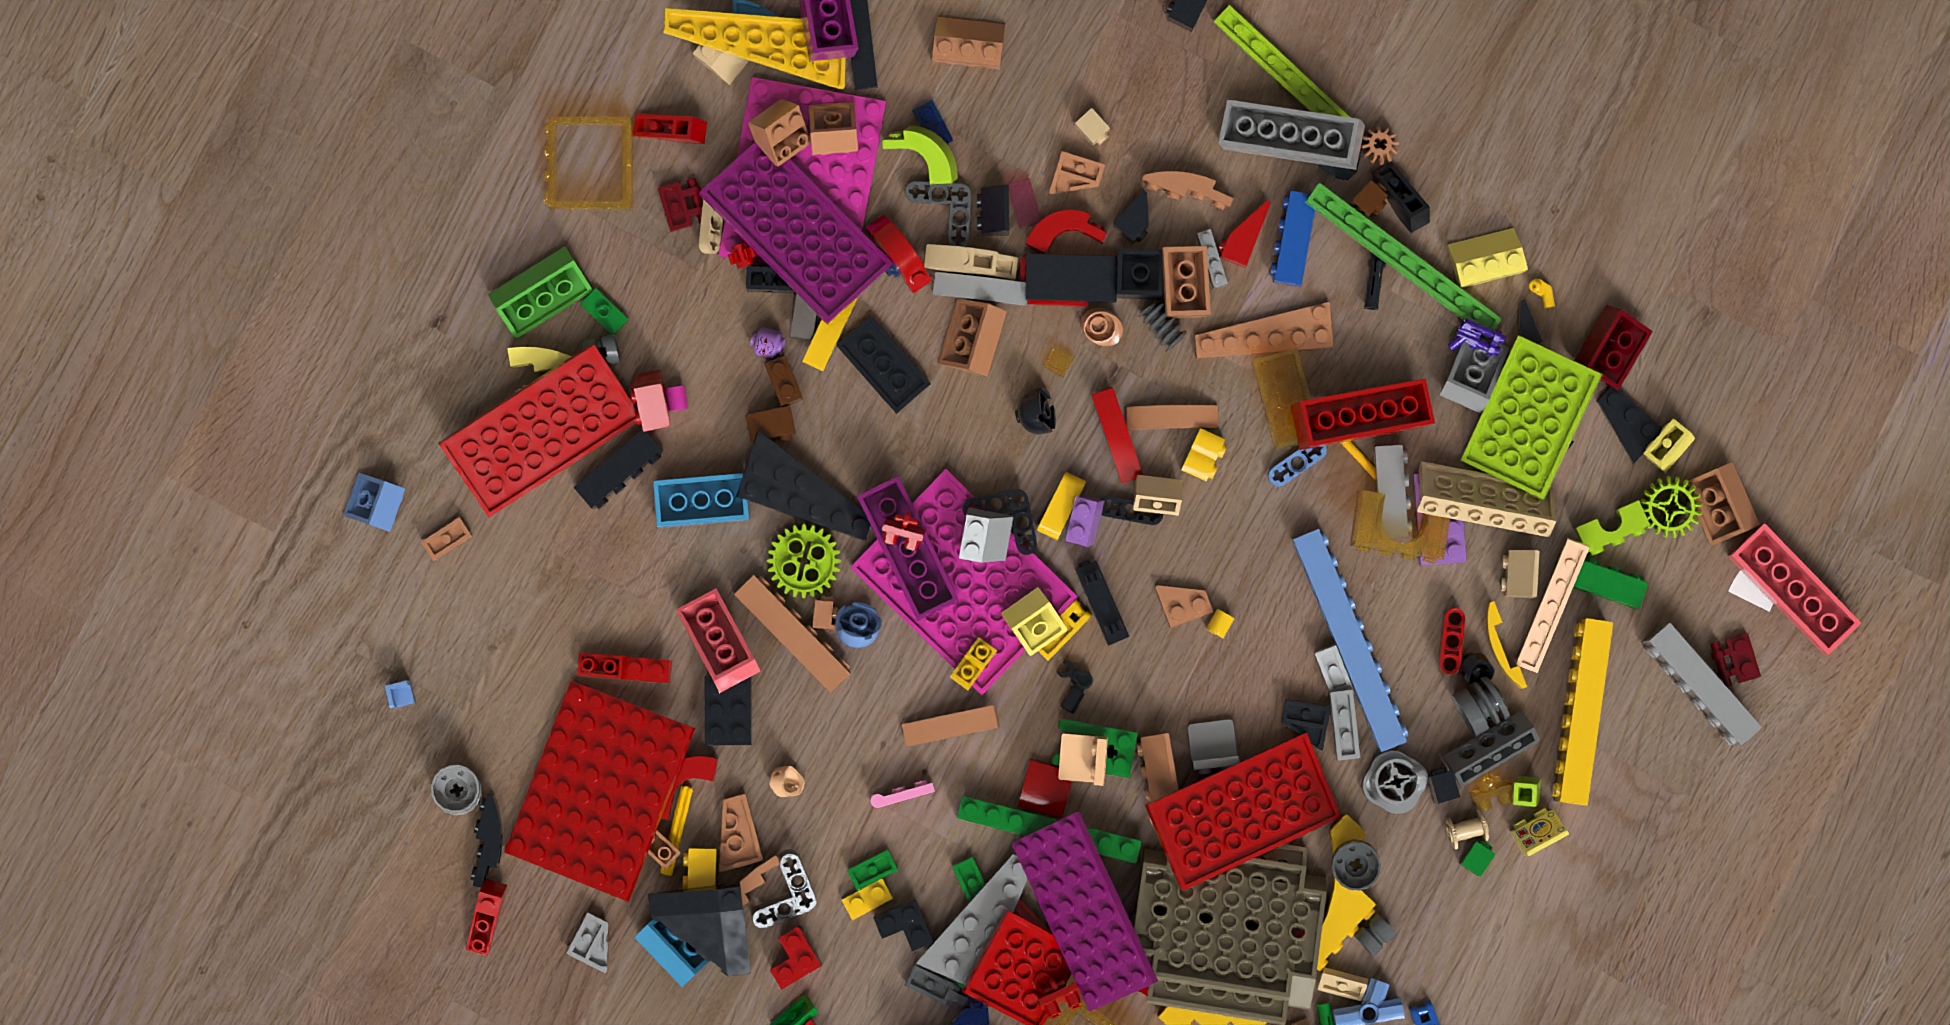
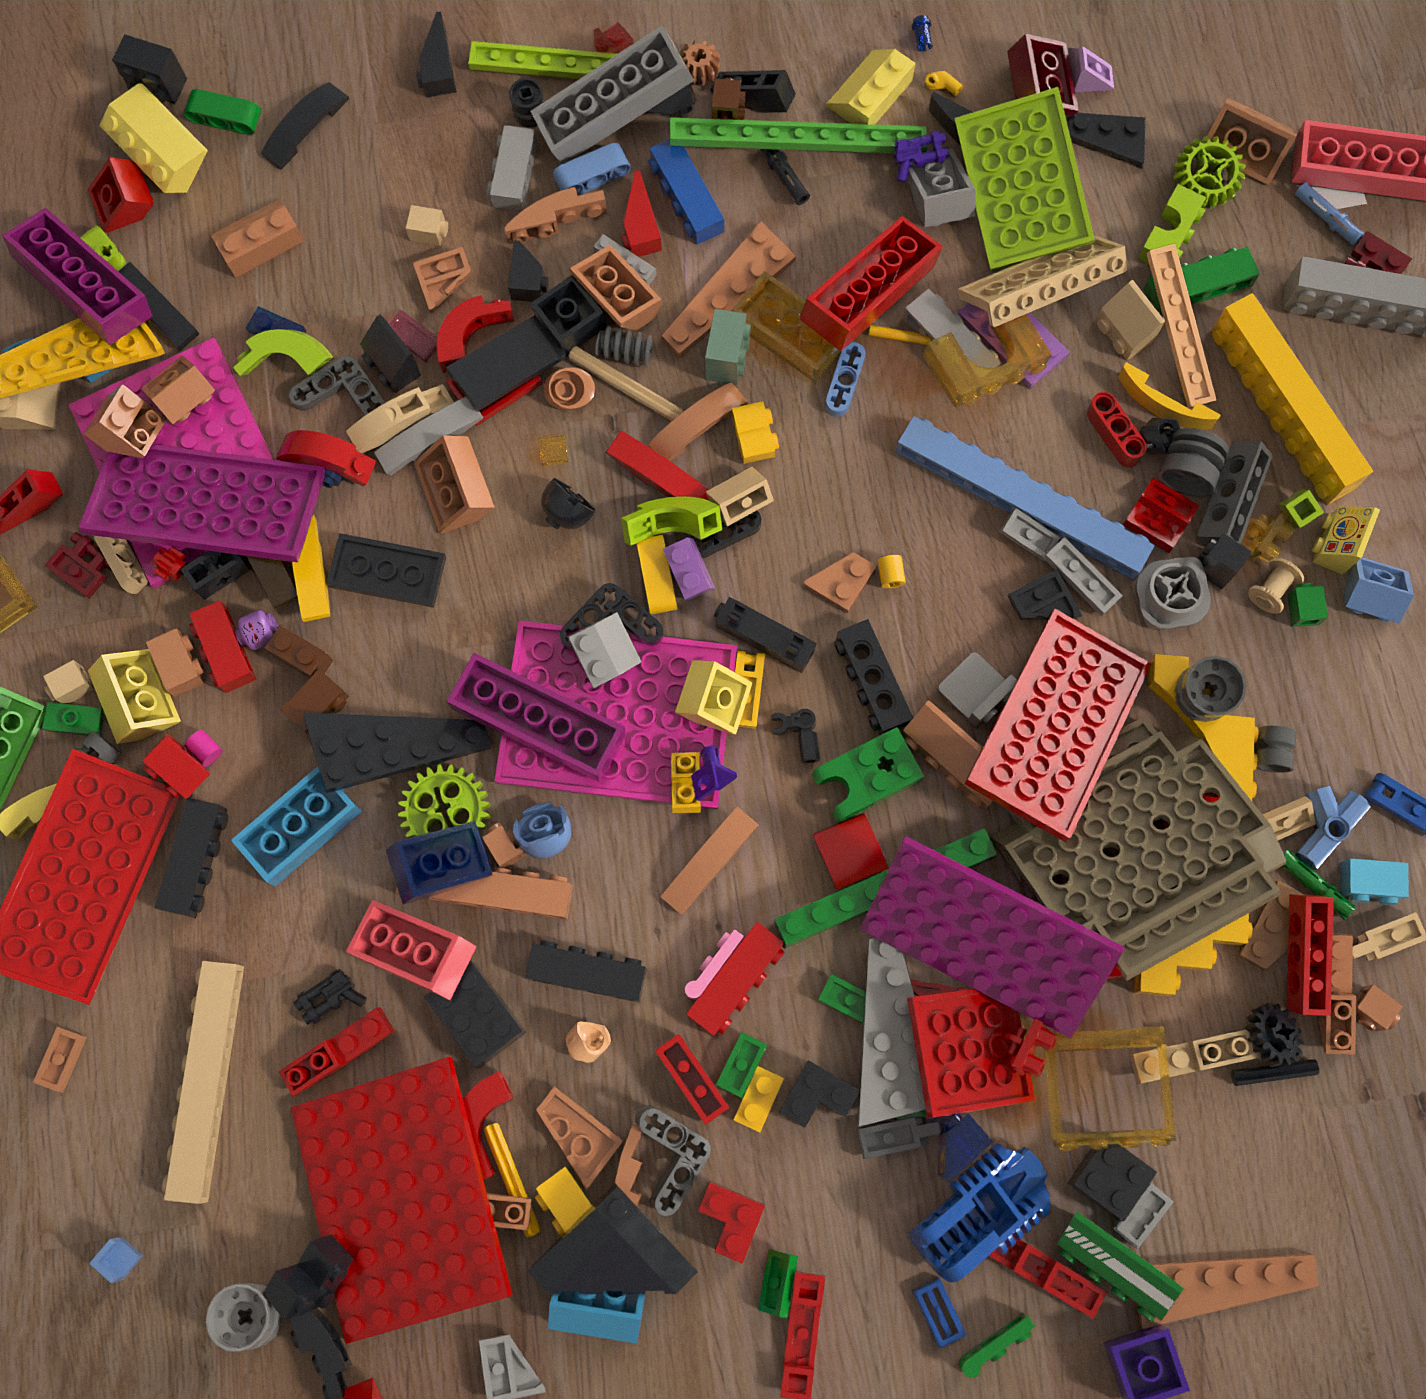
camera: 35 degrees left, 10 degrees down
(513, 799) = (311, 1281): none -> black brick
(528, 623) = (203, 1083): none -> tan brick
(617, 285) = (68, 683): none -> tan brick
(651, 626) = (336, 989): none -> black piece
(655, 326) = (132, 695): none -> light yellow slope
(699, 324) = (176, 662): none -> nougat brick
(736, 336) = (221, 647): none -> red brick
(775, 597) = (438, 862): none -> clear blue slope
(817, 737) = (586, 972): none -> black brick
(834, 855) = (692, 1079): none -> red brick
(904, 527) = (505, 703): red hips -> none
(909, 814) = (735, 979): none -> red brick
(993, 673) = (711, 774): none -> dark purple bracket
(1083, 758) = (866, 788): light nougat bracket -> none
(1103, 473) = (672, 514): none -> lime arch
(1143, 351) = (624, 383): none -> tan axle
(1165, 653) = (863, 637): none -> black brick
(1185, 128) = (512, 168): none -> light grey brick
(1230, 381) = (727, 346): none -> sand green brick
(1233, 85) = (524, 97): none -> black wheel
(1239, 172) = (592, 169): none -> medium blue beam
(1331, 78) = (612, 40): none -> clear red bracket
(1433, 722) = (1161, 515): none -> red slope
(1534, 883) = (1378, 590): none -> medium blue slope
(1559, 243) = (921, 26): none -> clear blue pin
(1655, 364) = (1090, 71): none -> lavender slope
(1668, 445) = (1162, 122): light yellow brick -> none
(1731, 592) = (1353, 233): none -> medium blue pin

